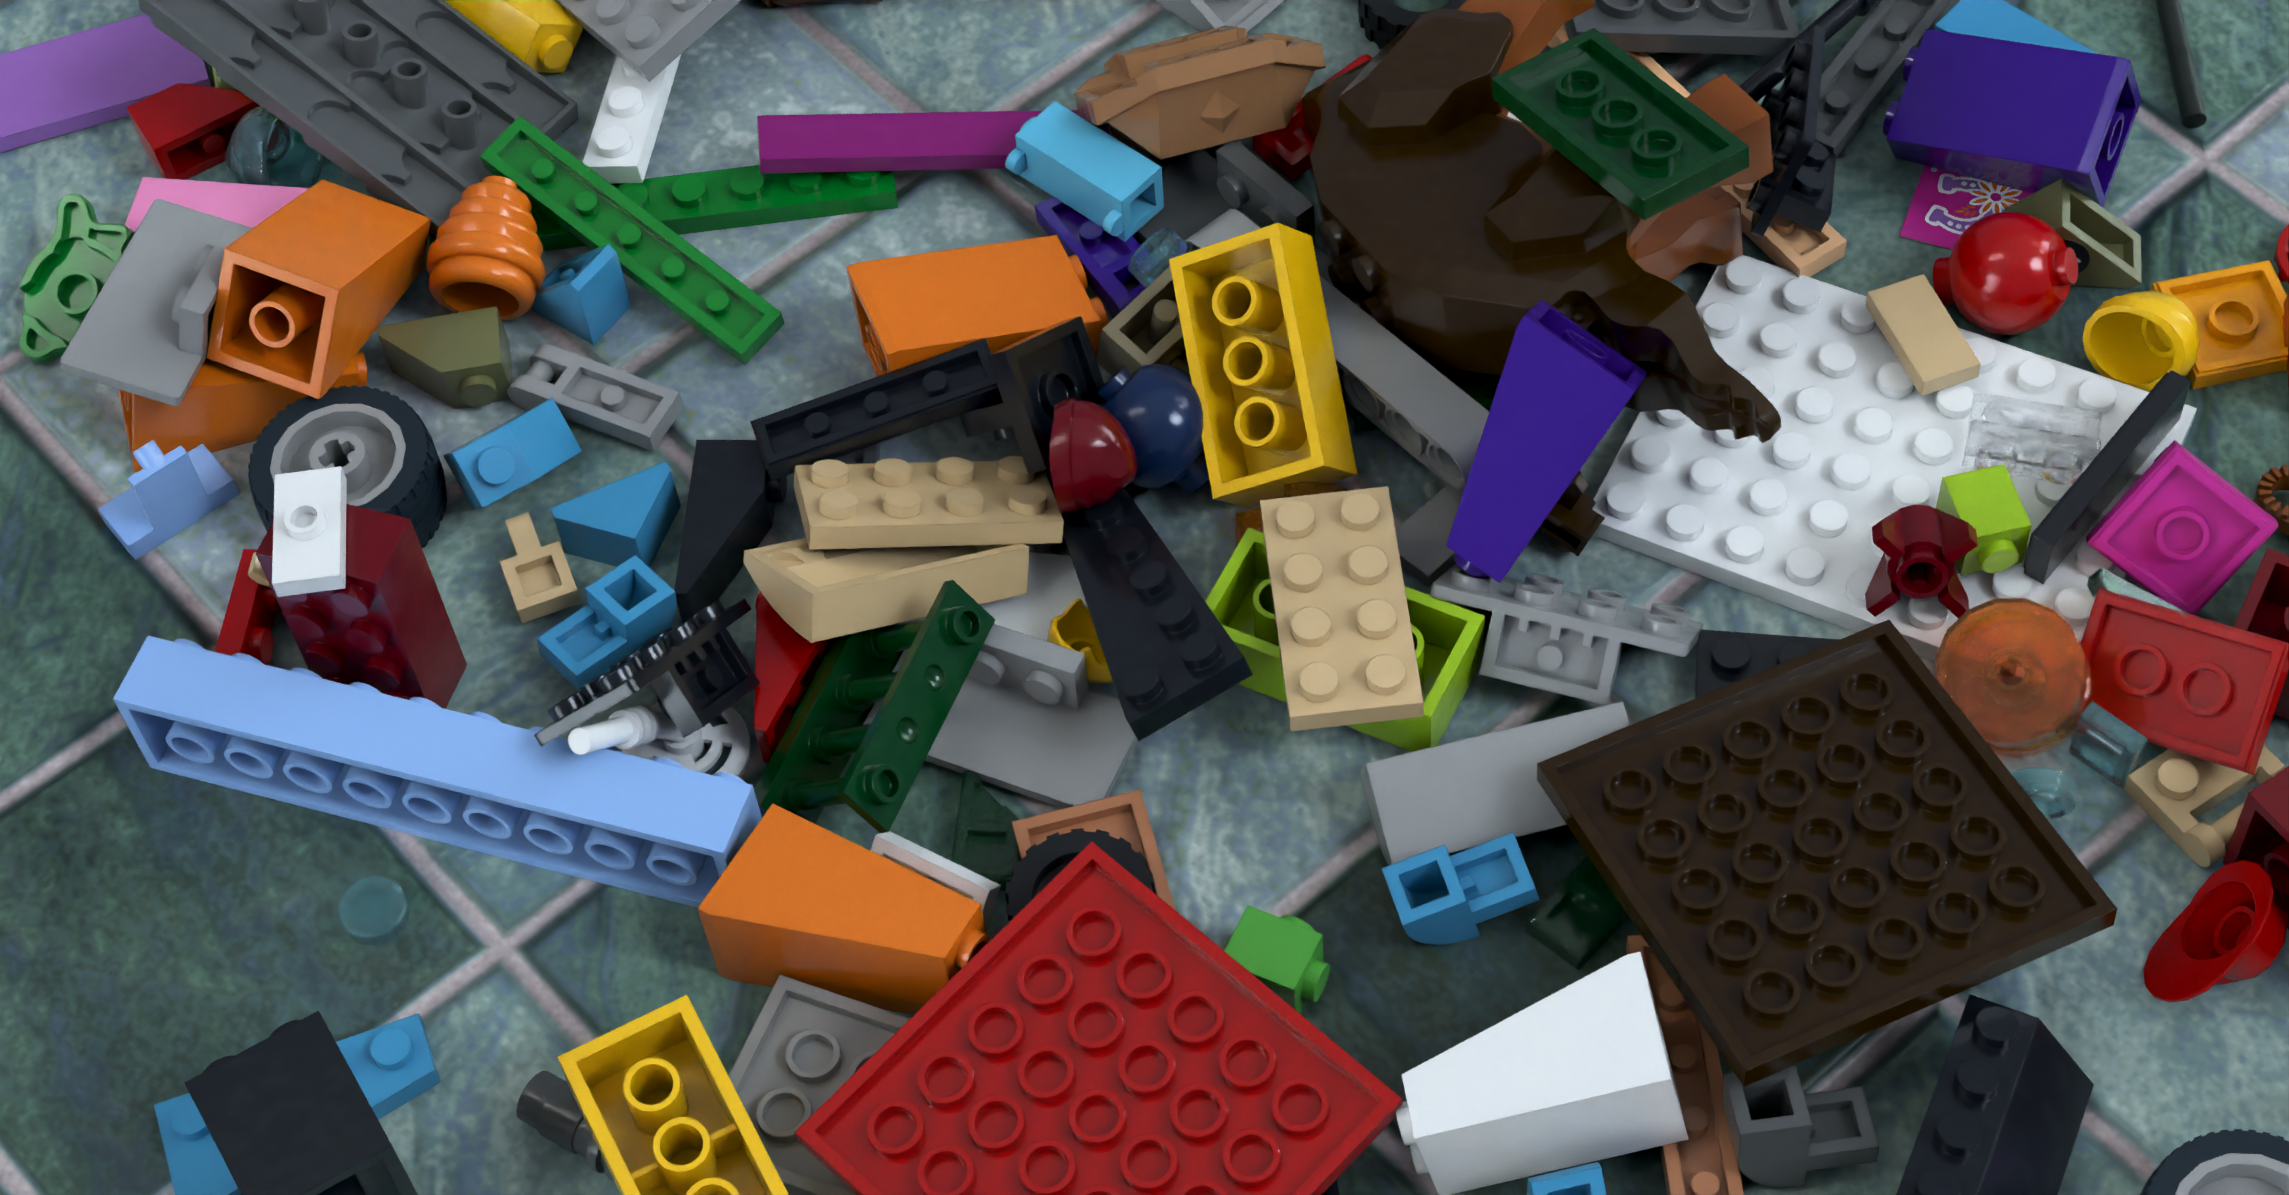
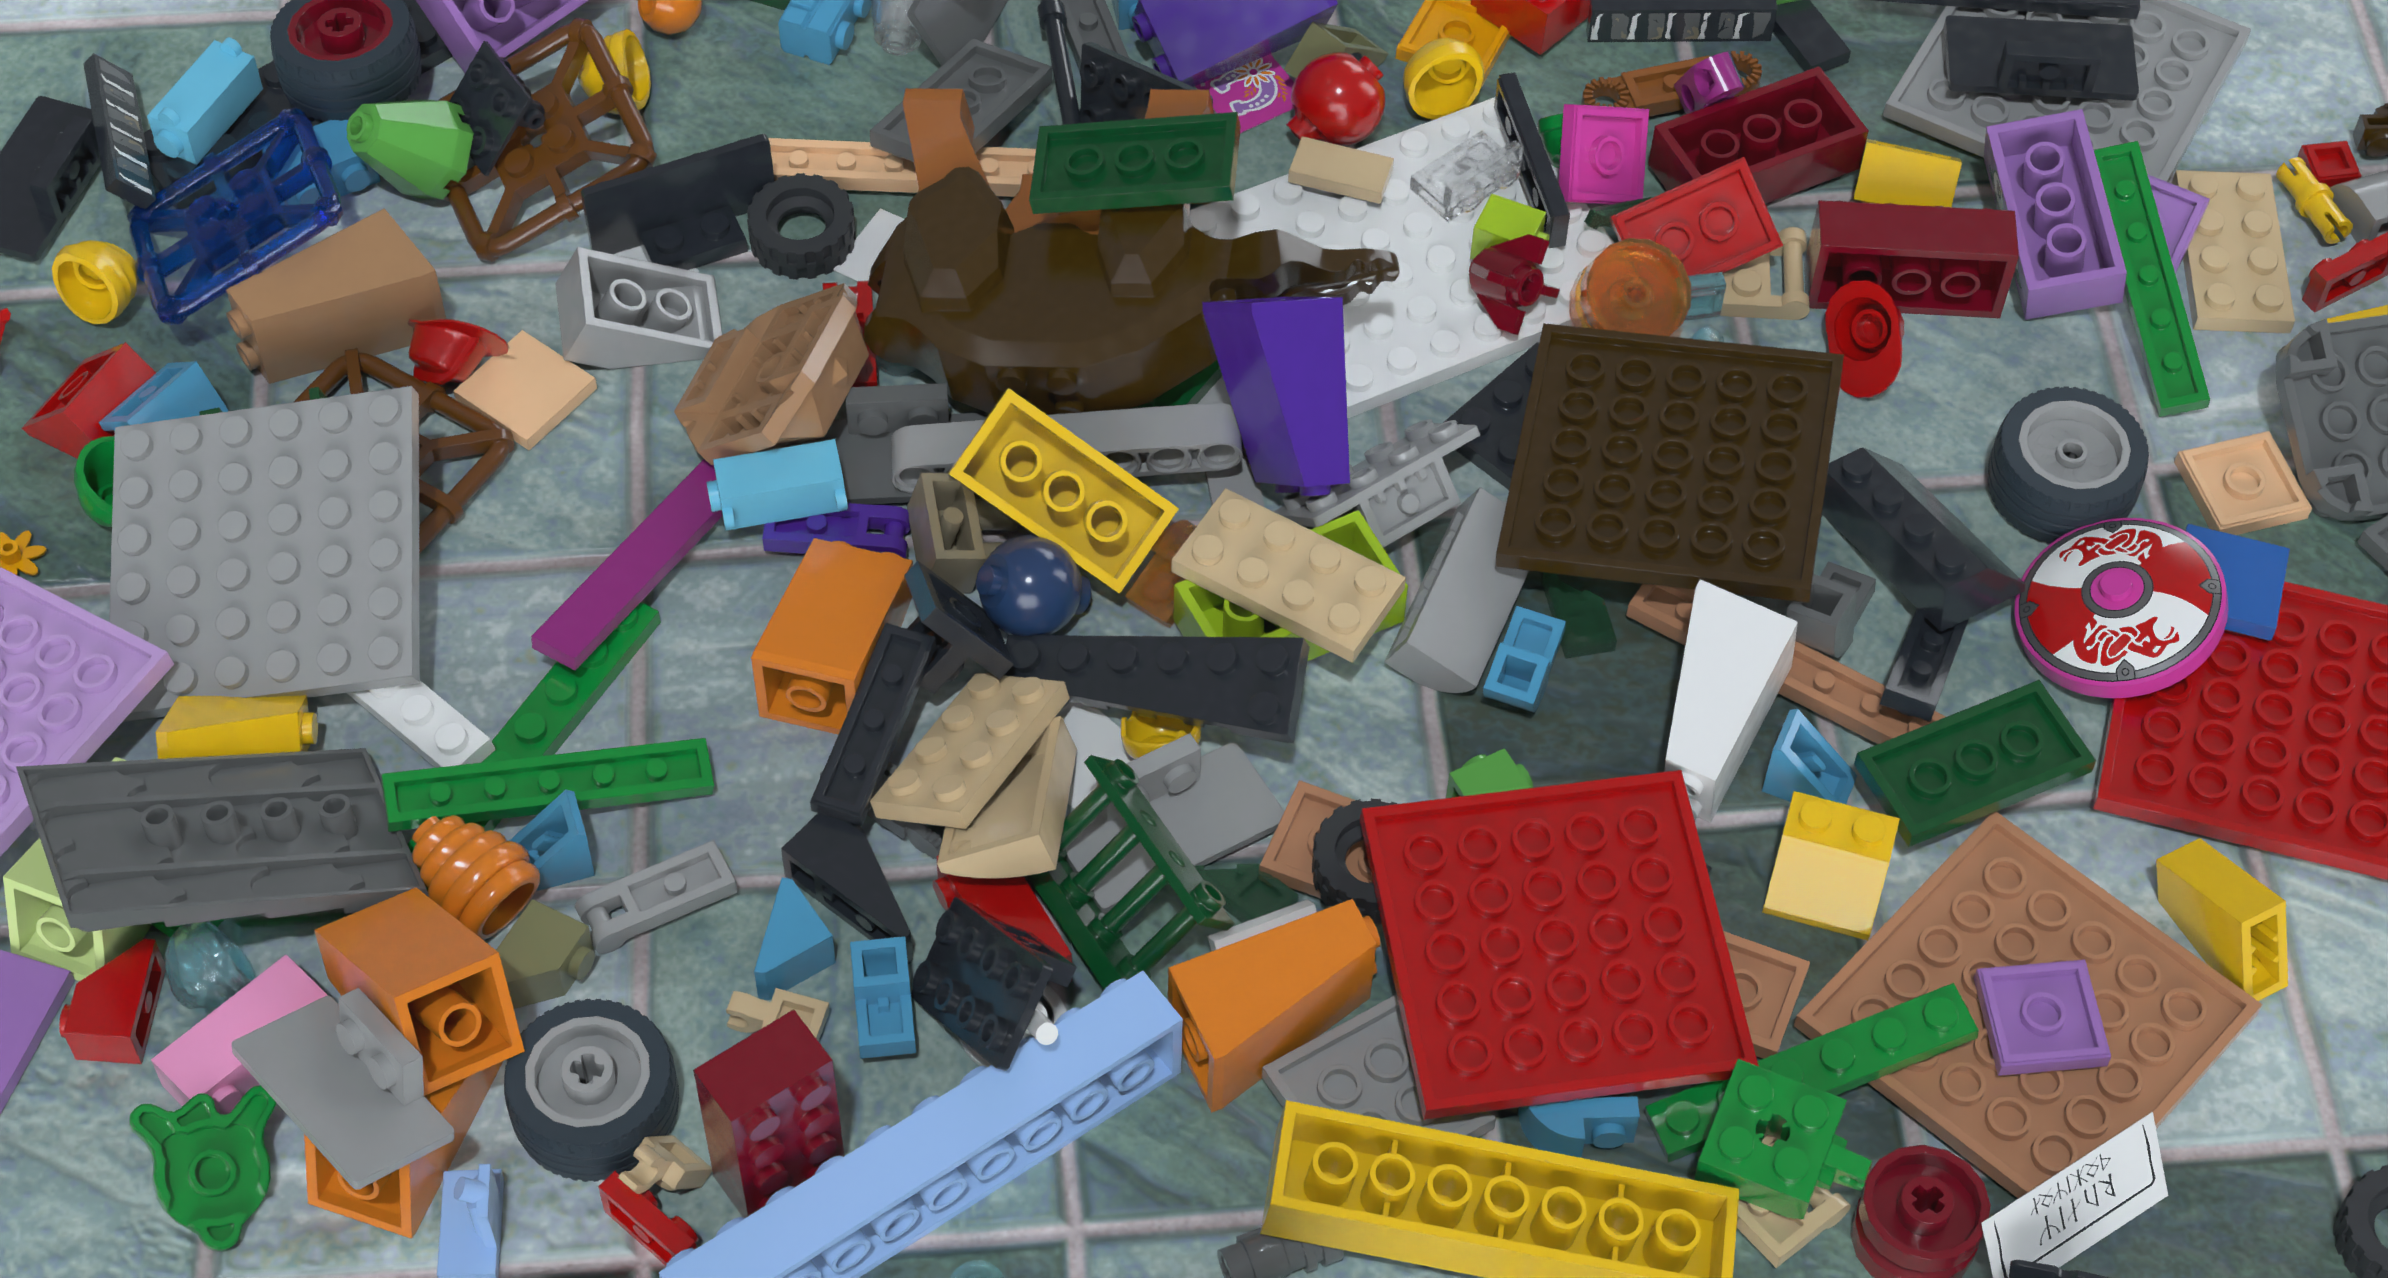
camera: 60 degrees left, 0 degrees up
(309, 531) = (753, 1072): white plate -> none
(512, 454) = (670, 977): dark azure slope -> none
(1088, 455) = (1039, 630): dark red hat -> none
(1154, 254) = (894, 495): clear light blue tile -> none

